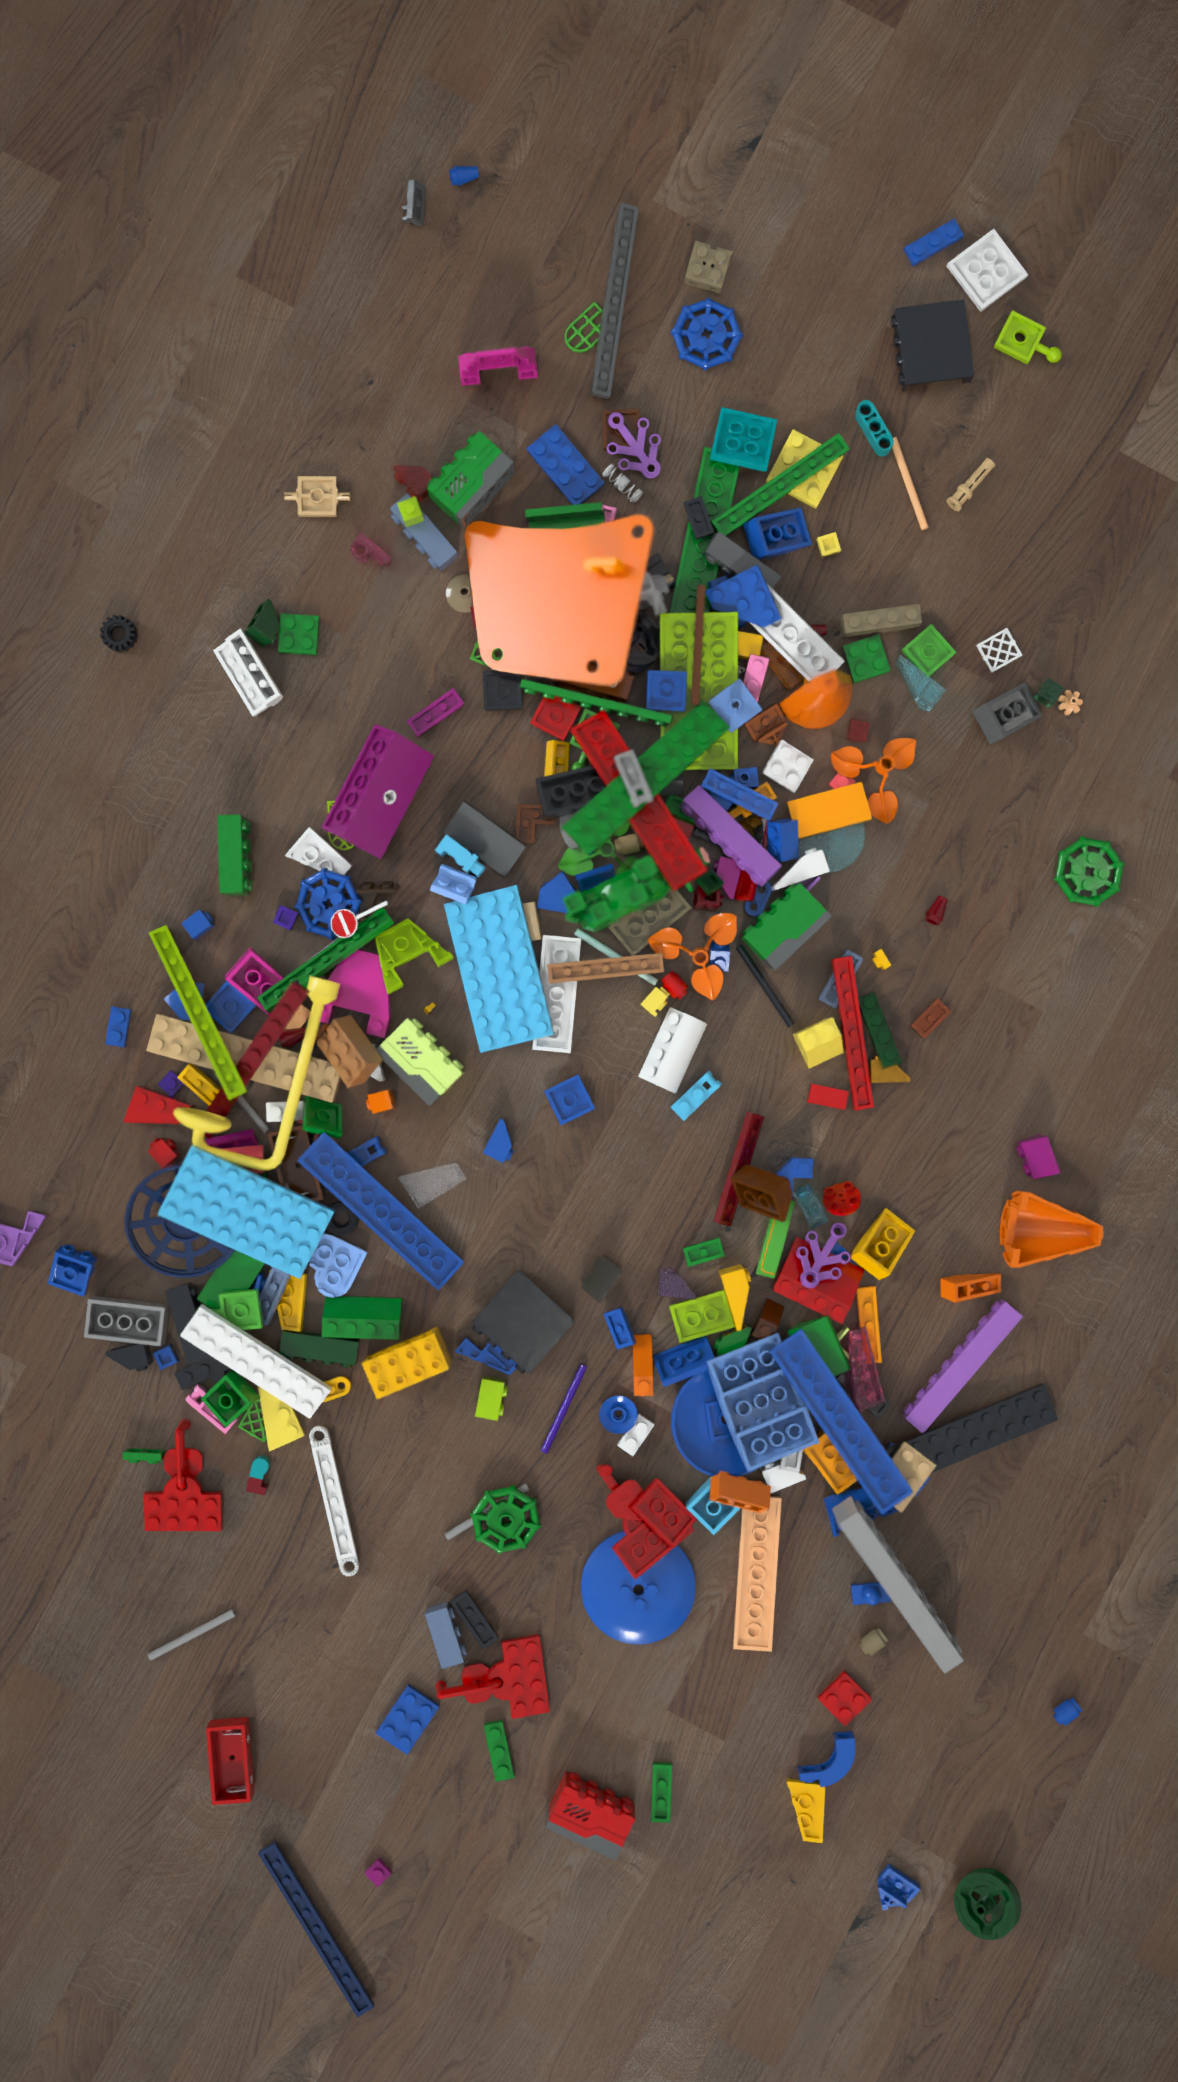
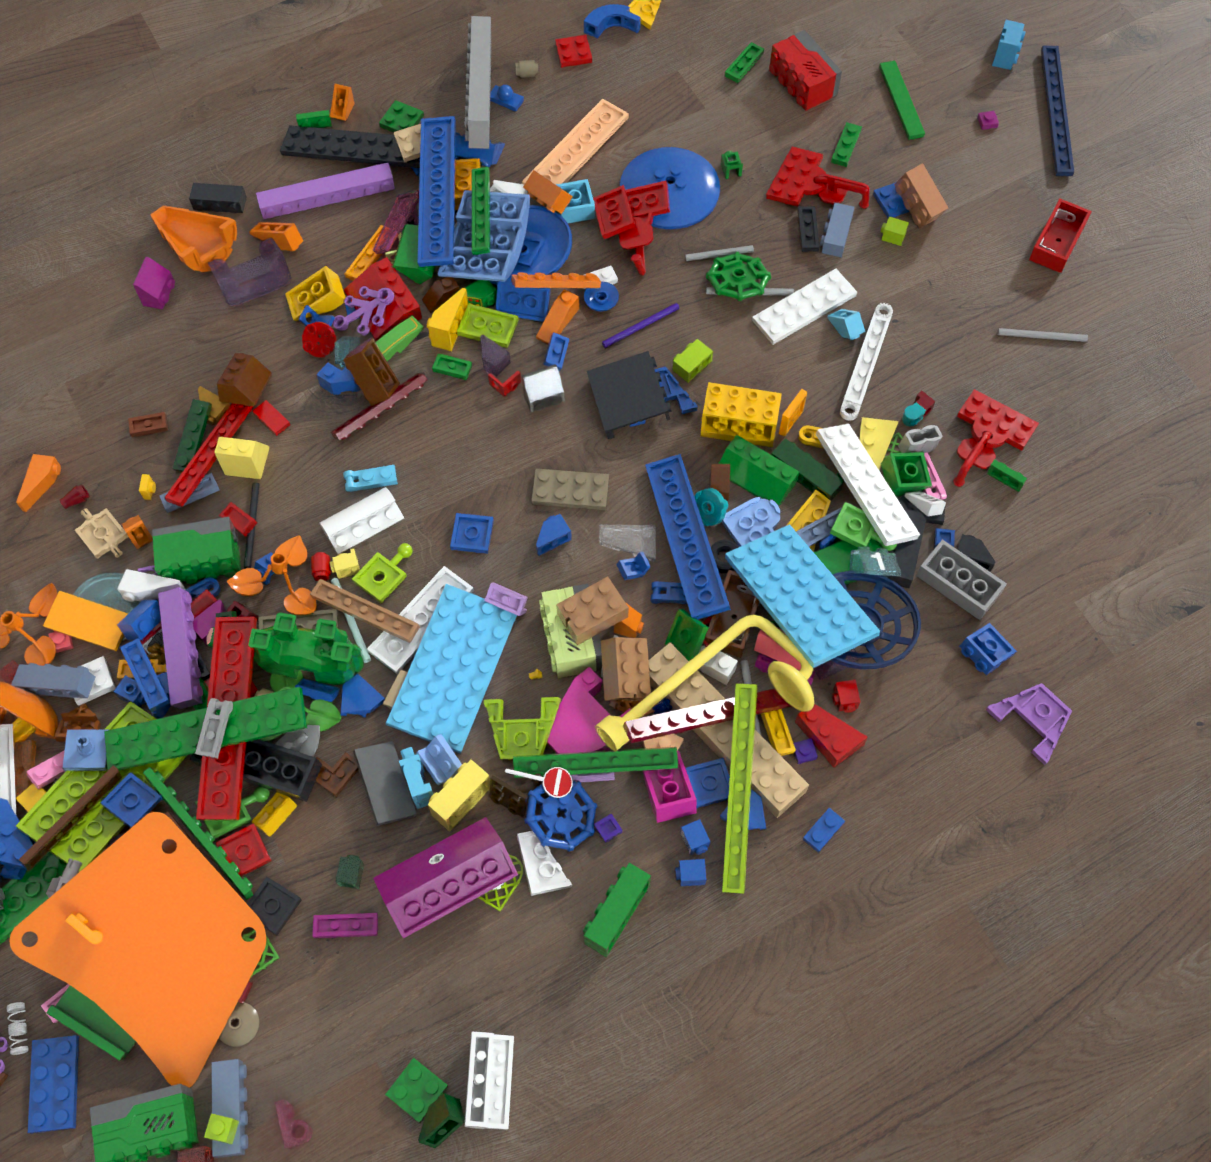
camera: 145 degrees left, 25 degrees down
(186, 1377) = (926, 503): none -> white slope
(201, 1280) = (874, 563): none -> clear light blue slope
(212, 953) = (695, 837): none -> blue brick
(235, 1439) = (921, 440): none -> light grey brick
(363, 1397) = (793, 412): none -> light orange tile
(372, 1258) = (718, 506): none -> teal plate
(375, 1530) = (847, 323): none -> medium azure slope
(382, 1718) = (921, 196): none -> nougat brick
(385, 1281) = (720, 479): none -> reddish brown slope
(391, 1668) = (894, 231): none -> lime brick
(404, 1080) = (592, 610): none -> medium nougat piece
(408, 1987) = (1009, 45): none -> dark azure wedge
(410, 1156) = (634, 567): none -> blue bracket
(416, 865) = (459, 795): none -> light yellow brick
(426, 1527) = (804, 306): none -> white plate
(461, 753) = (350, 871): none -> clear green brick
(477, 1845) = (902, 100): none -> green tile
(493, 1053) = (506, 599): none -> lavender panel
(515, 1198) = (570, 489): none -> dark tan plate
(542, 1537) = (718, 253): none -> light grey bar
(594, 1651) = (729, 161): none -> green window
(609, 1018) = (380, 565): none -> lime plate
(636, 1264) = (508, 386): none -> red bracket
(663, 1395) = (556, 280): none -> orange plate
(779, 982) = (242, 521): none -> red tile
(784, 1426) = (480, 211): none -> green tile
(812, 742) = (54, 680): none -> sand blue brick
(856, 914) = (137, 531): none -> orange slope
(860, 1219) = (328, 319): none -> blue bracket
(874, 1112) = (243, 380): none -> reddish brown slope
(886, 894) = (101, 533): none -> tan plate
(955, 1500) = (400, 117): none -> green plate
(959, 1228) = (254, 276): none -> clear purple windscreen
(982, 908) = (38, 479): none -> orange slope
(1025, 1478) = (341, 102): none -> orange slope
(1042, 1436) = (314, 119): none -> green plate
(1059, 1290) = (217, 198): none -> black brick

